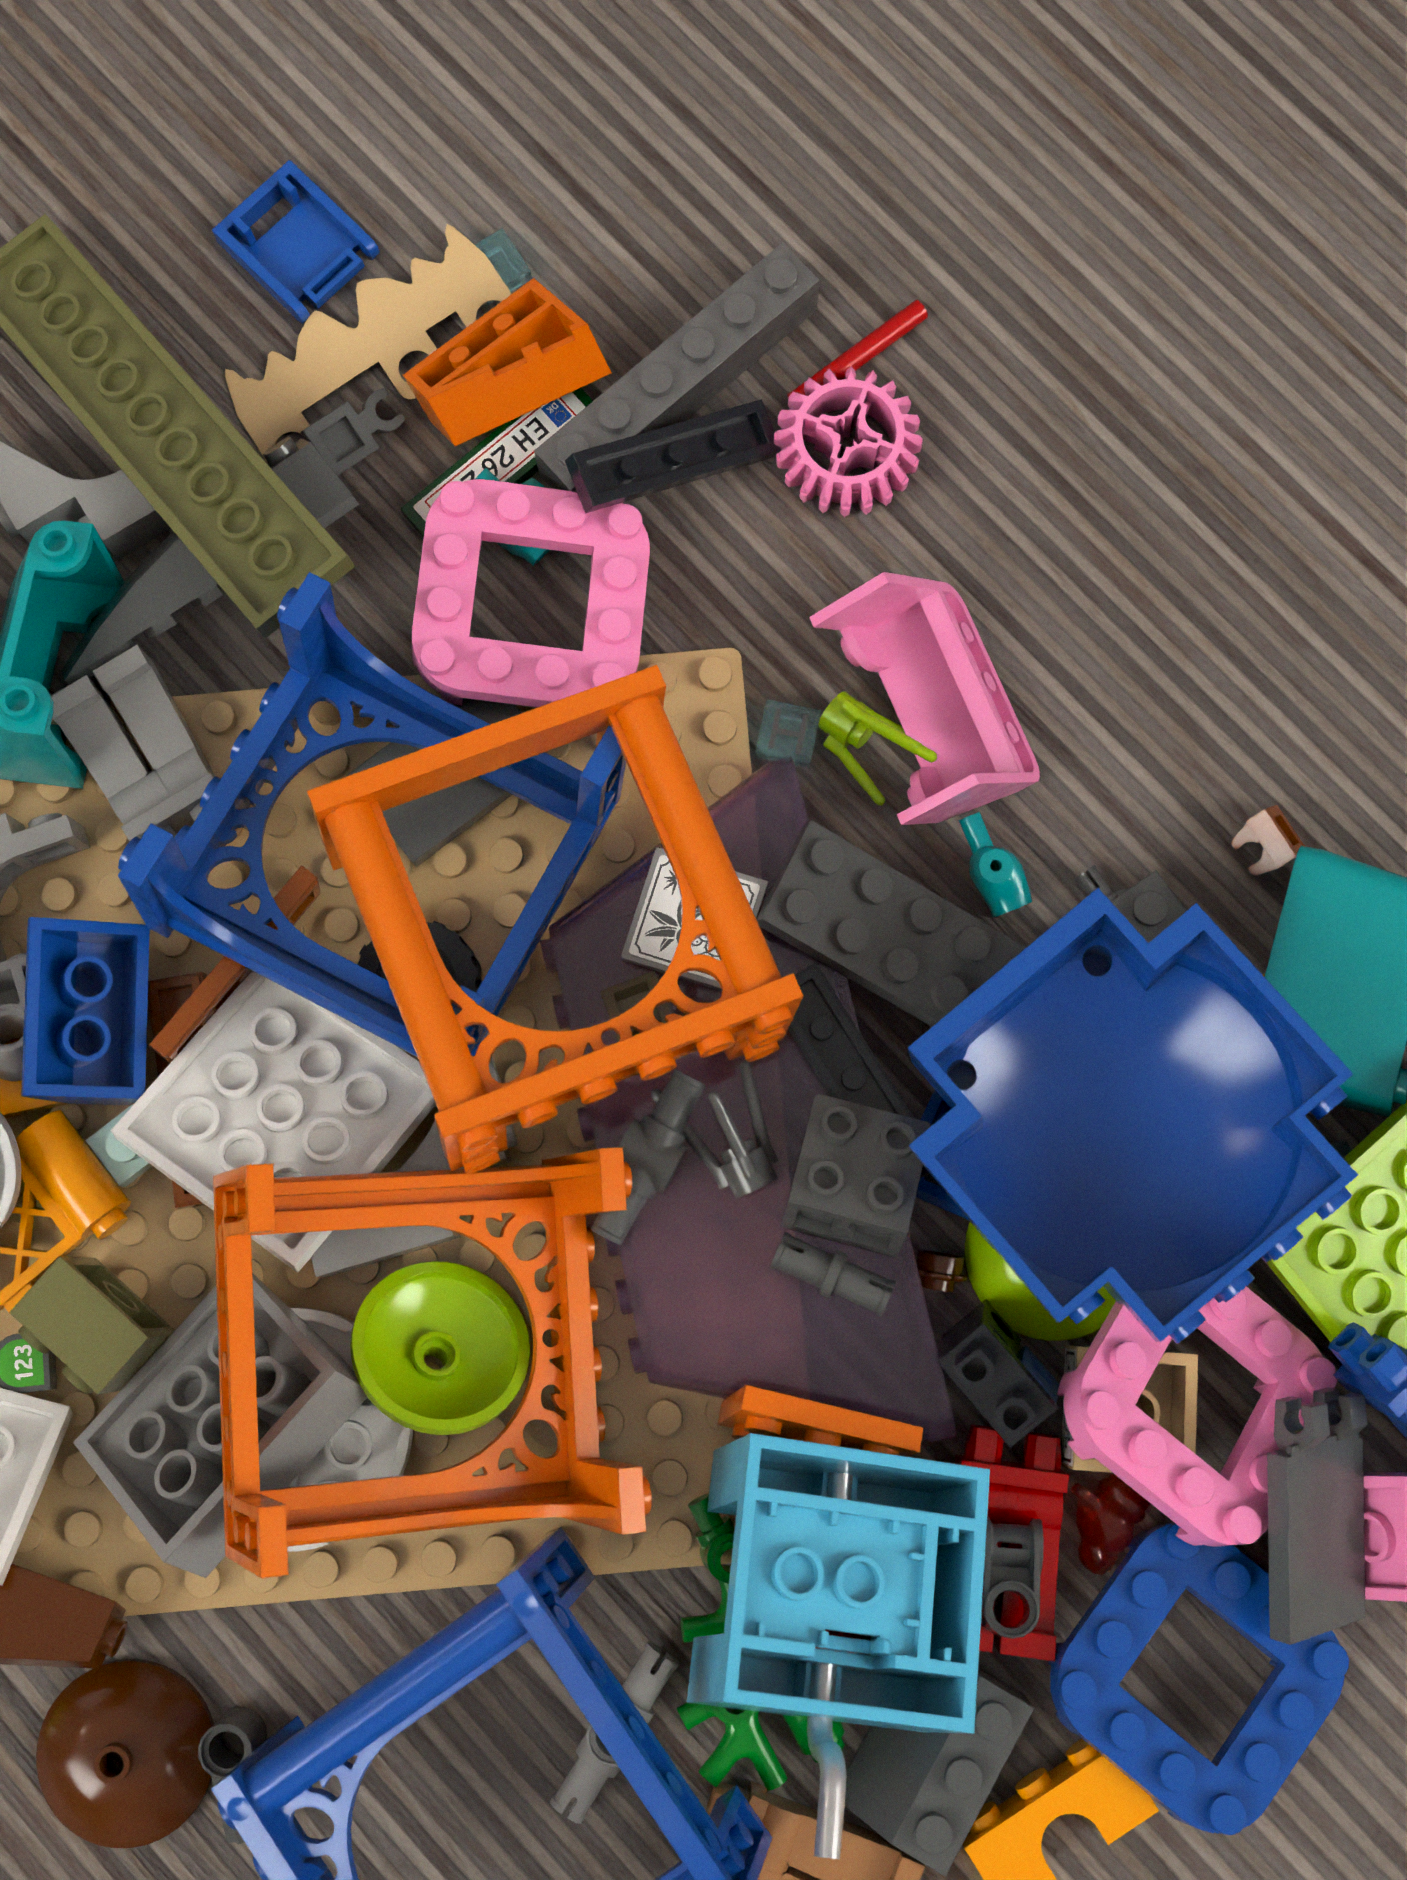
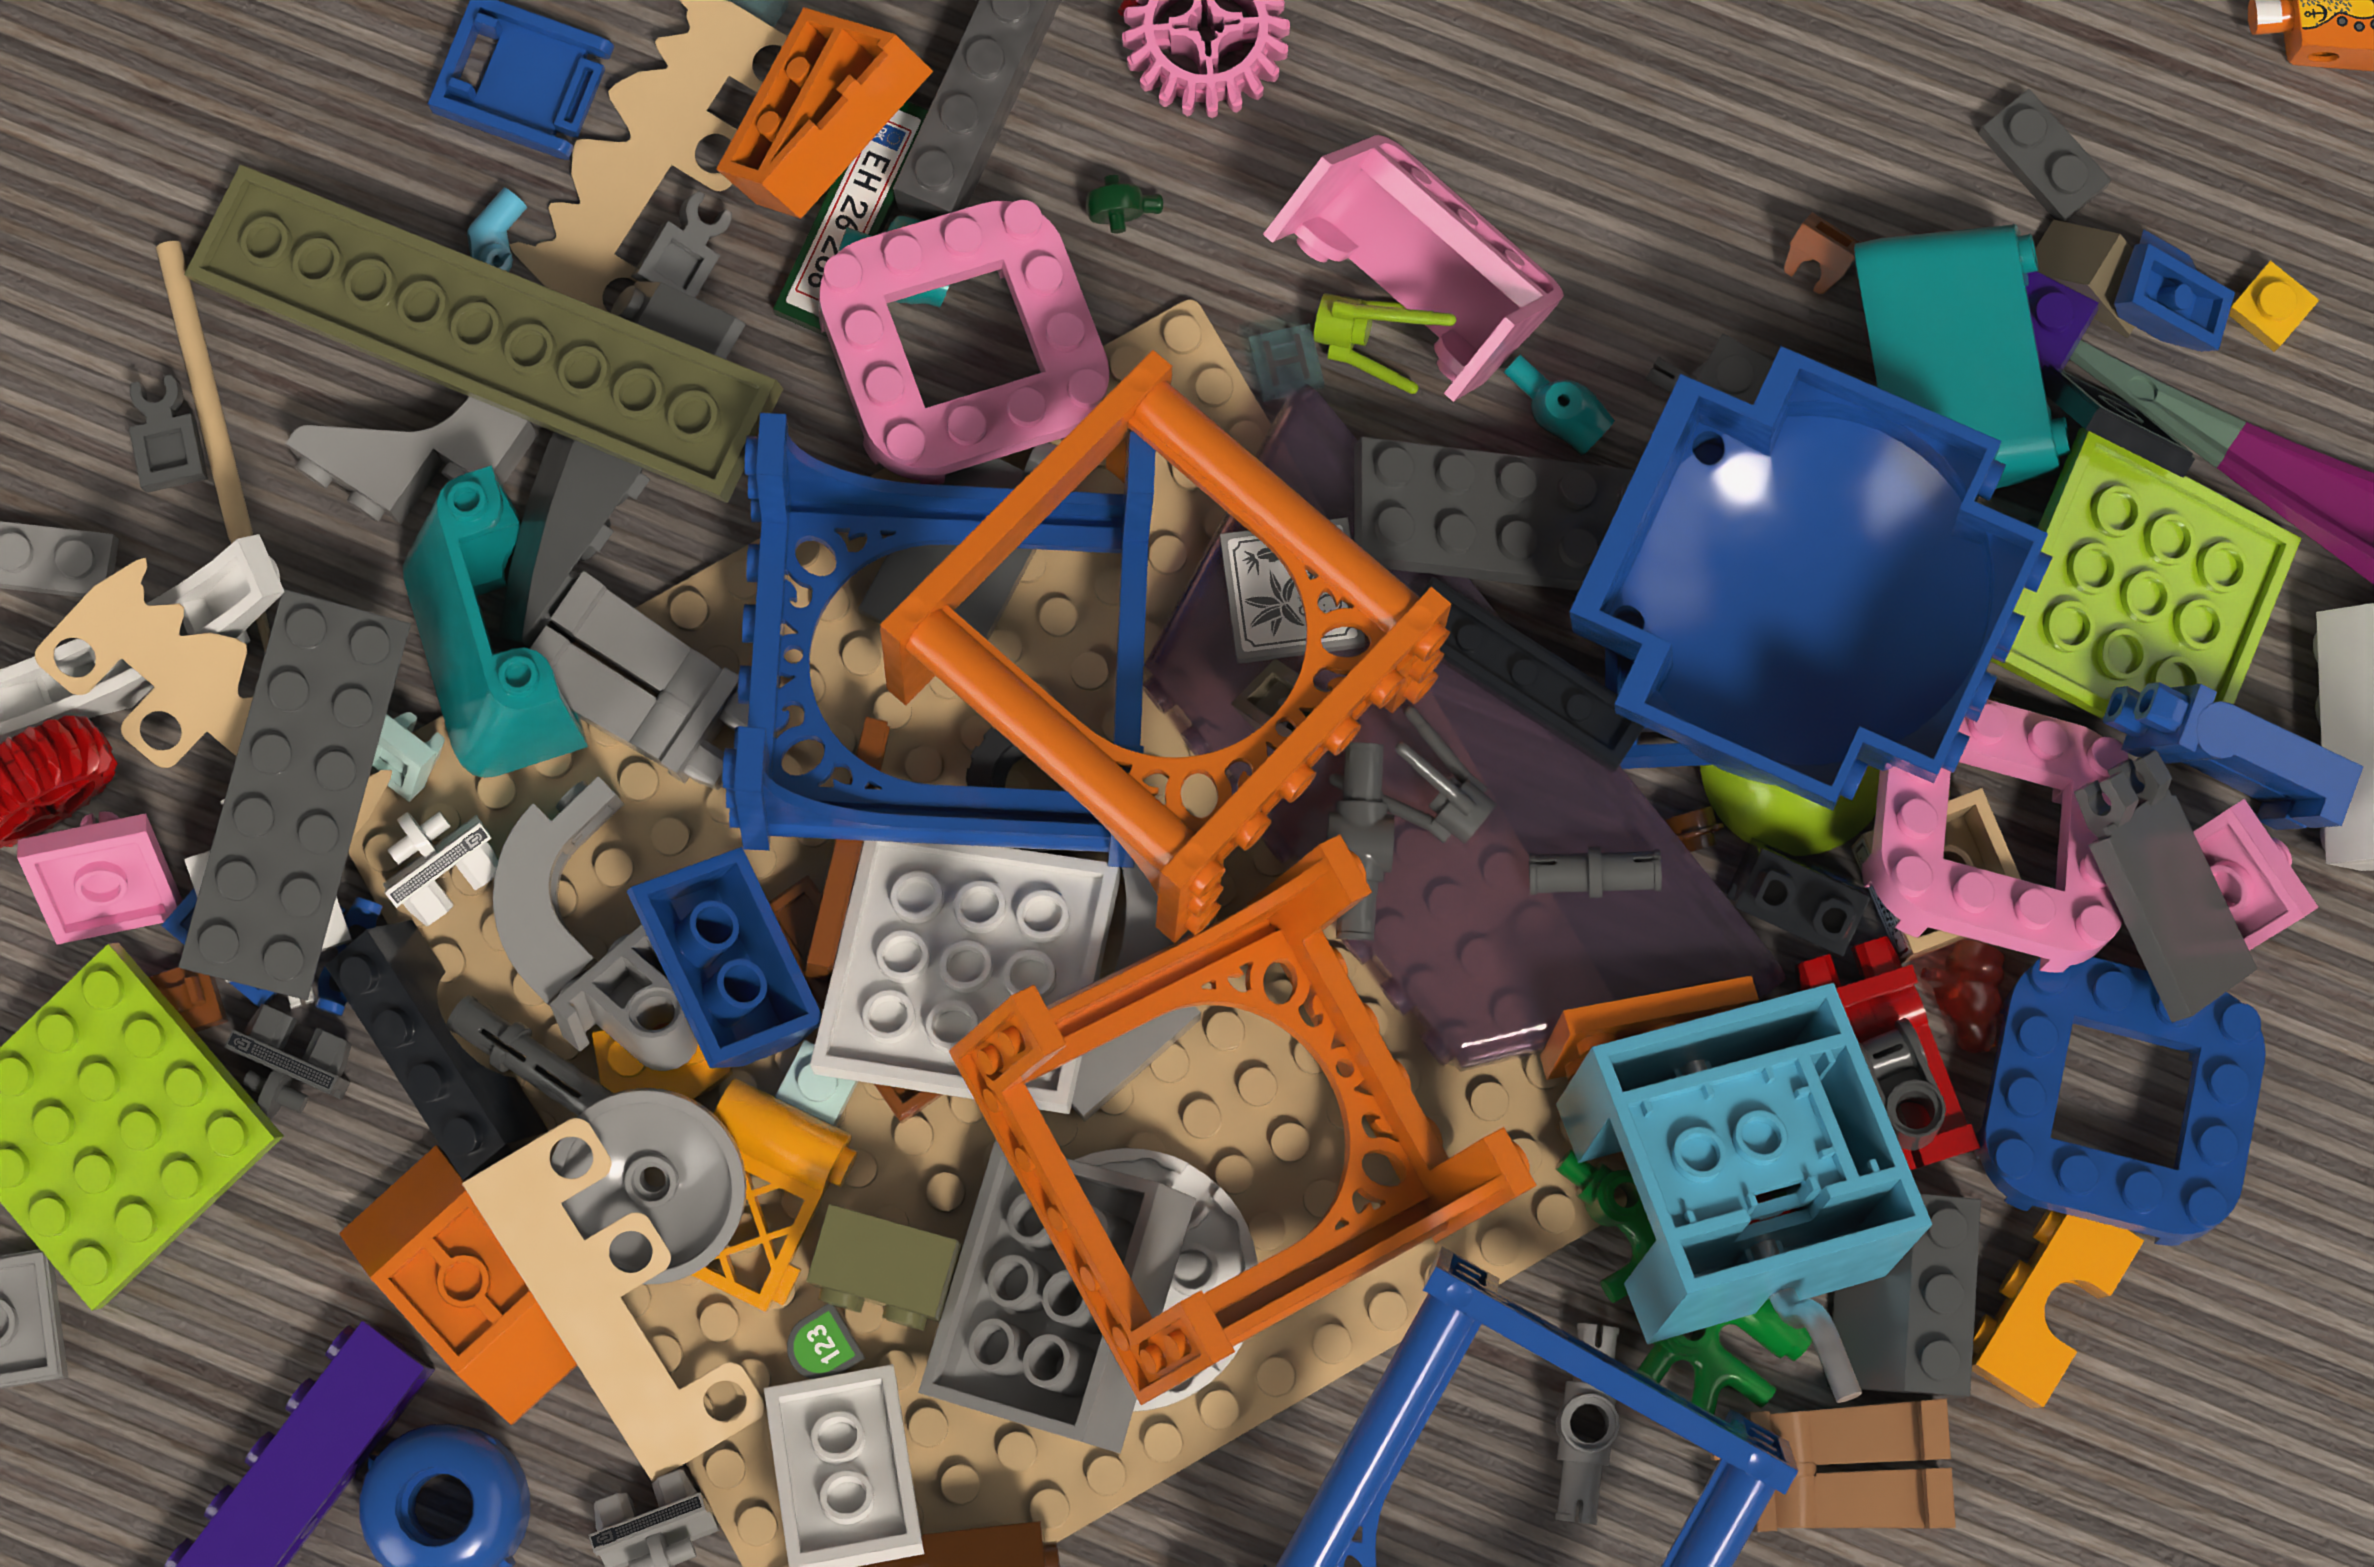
camera: 30 degrees left, 0 degrees up
(211, 353) = (488, 232): none -> medium azure arm
(447, 1315) = (1245, 1101): lime dish -> none
(672, 456) = (1037, 129): black plate -> none
(714, 547) = (1120, 204): none -> dark green piece
(855, 1176) = (1573, 767): dark grey bracket -> none

